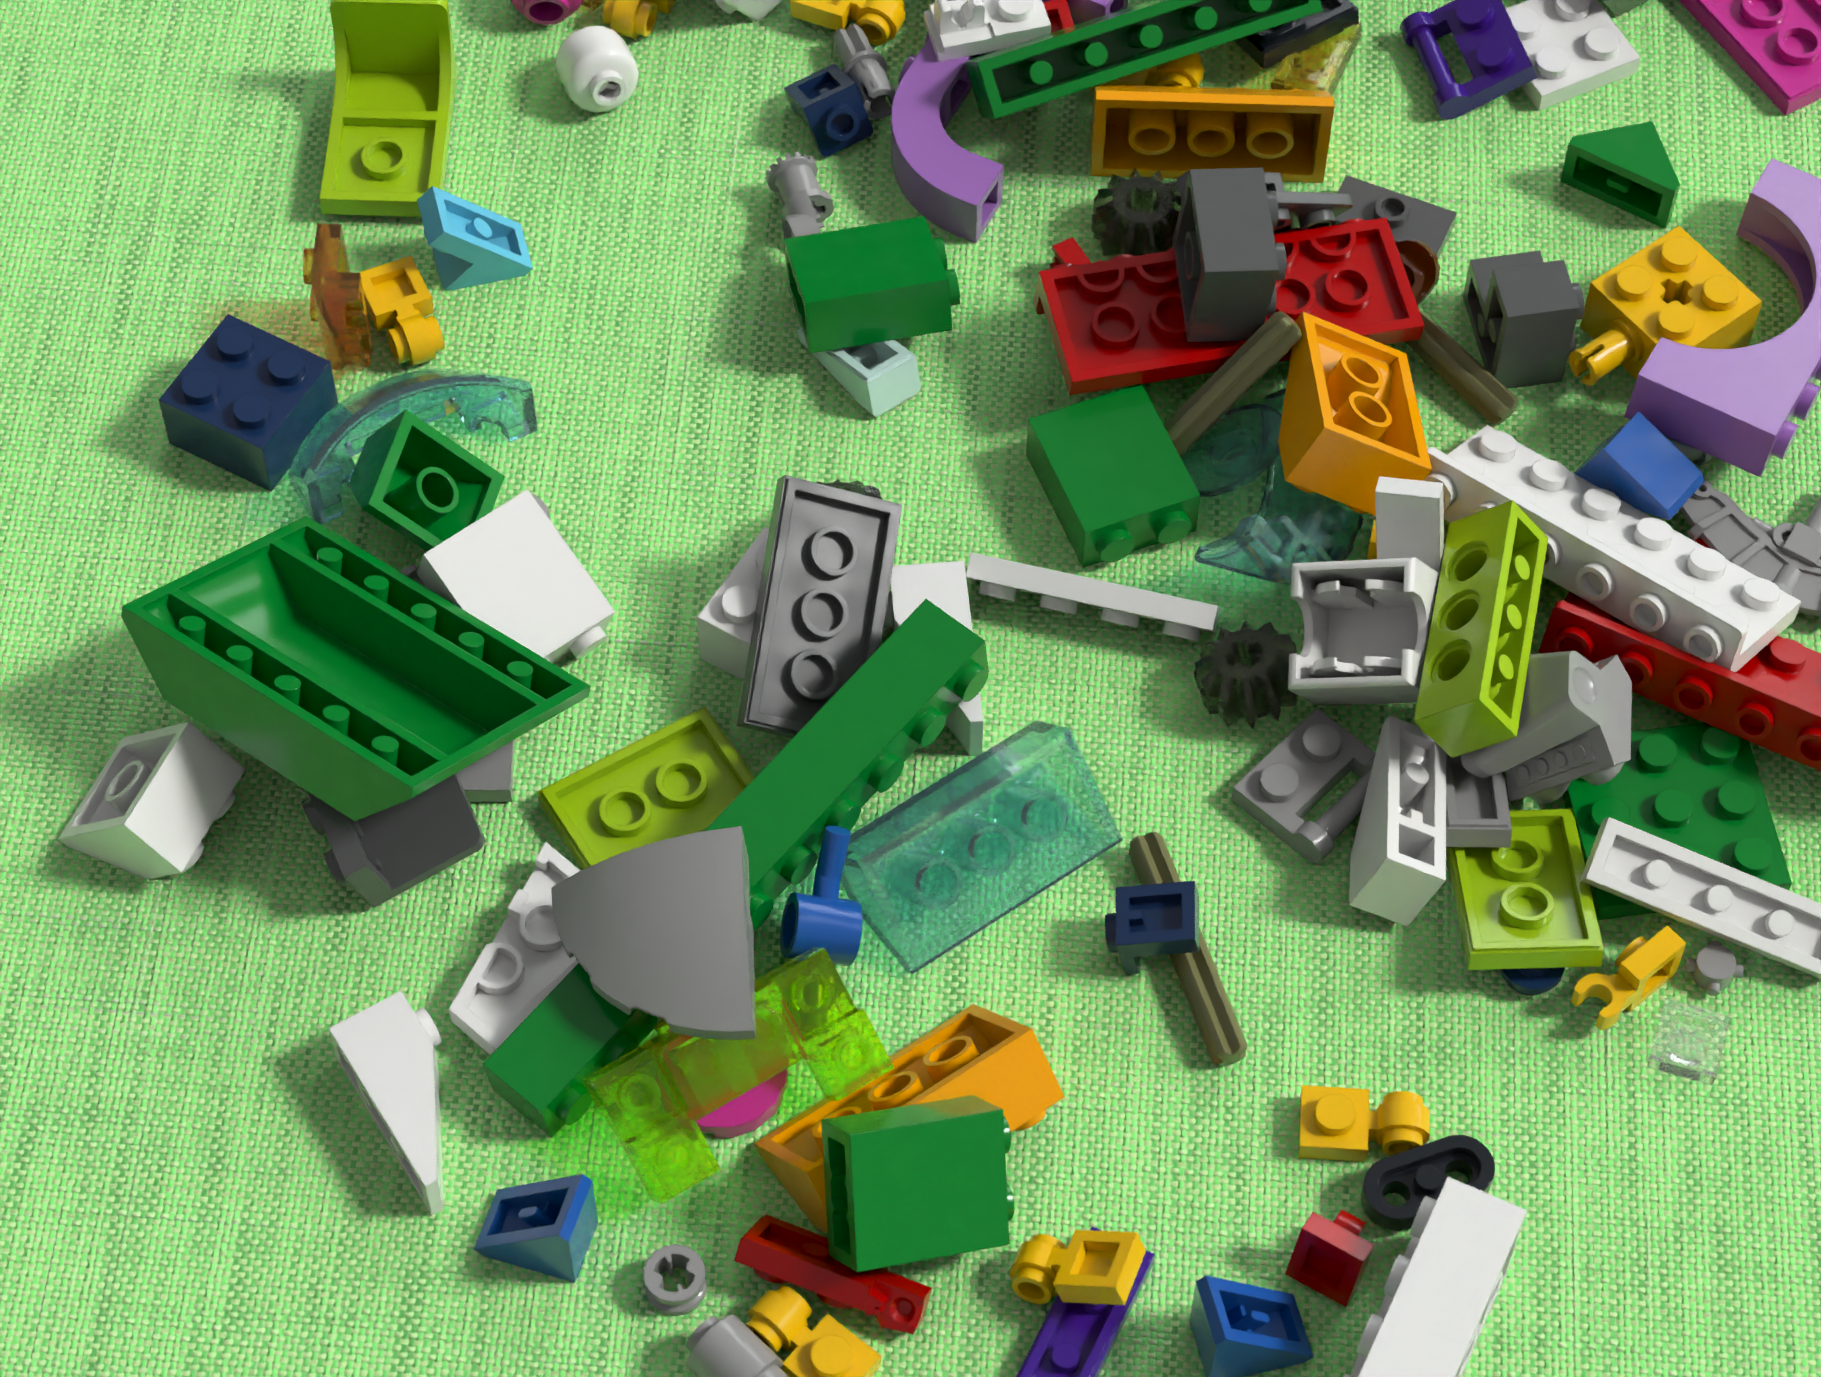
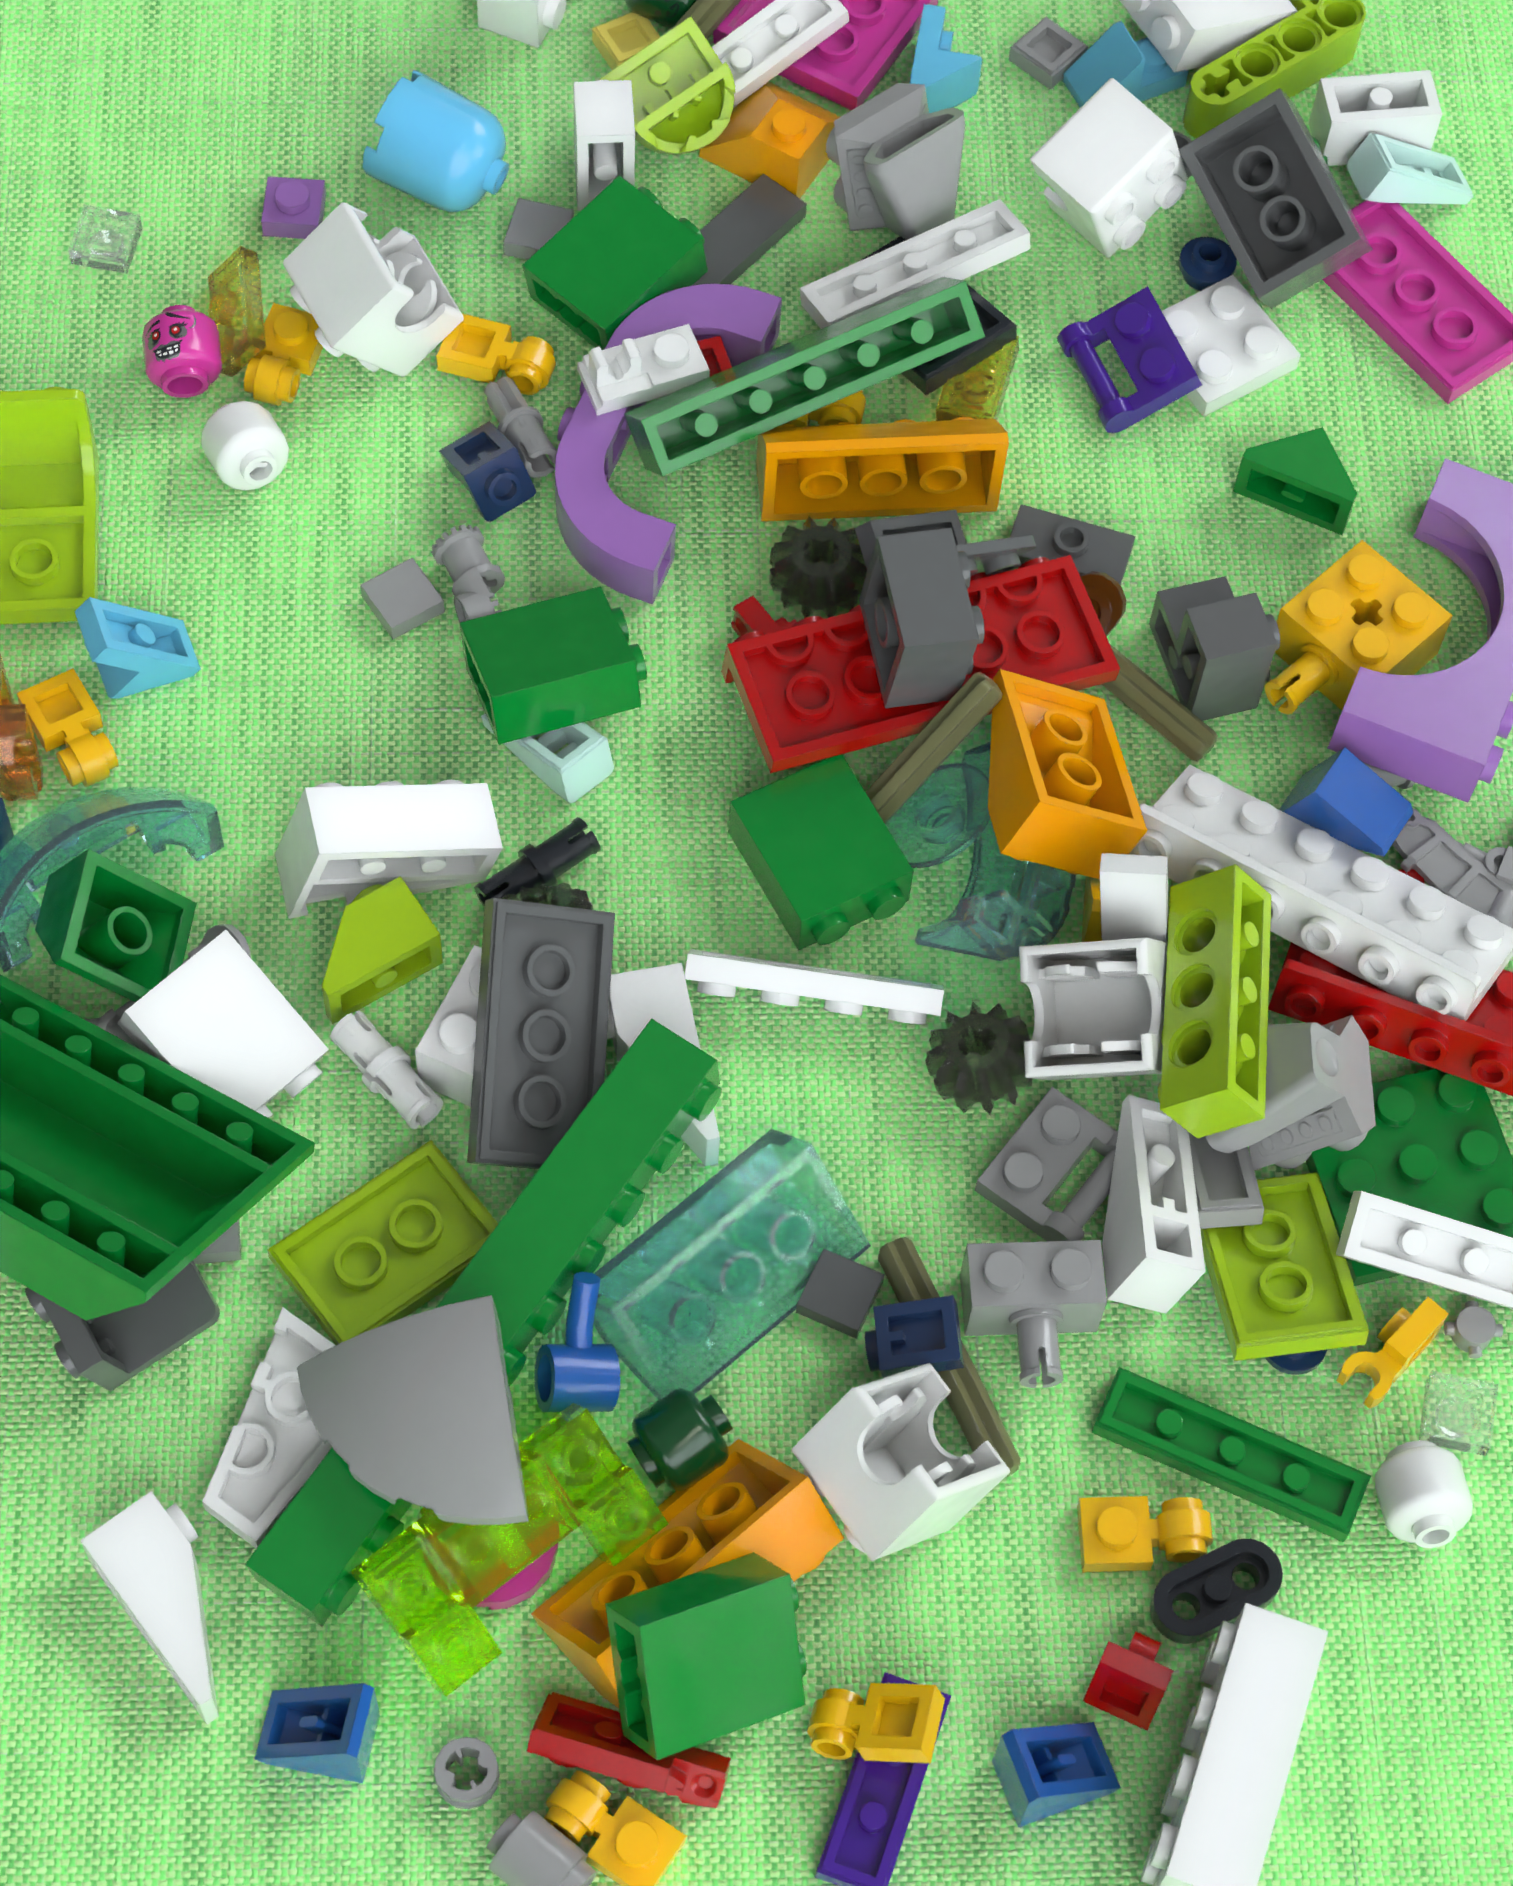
camera: 10 degrees left, 5 degrees up
(669, 639) = (386, 1070): none -> white pin
(673, 529) = (378, 948): none -> lime slope
(691, 428) = (373, 834): none -> white wedge
(733, 218) = (402, 598): none -> light grey tile
(850, 460) = (542, 862): none -> black pin
(915, 994) = (680, 1439): none -> dark green head
(1087, 880) = (840, 1293): none -> dark grey tile
(1110, 1032) = (886, 1468): none -> white piece
(1277, 894) = (1033, 1294): none -> light grey brick
(1458, 1061) = (1231, 1454): none -> green tile
(1645, 1108) = (1423, 1494): none -> white head

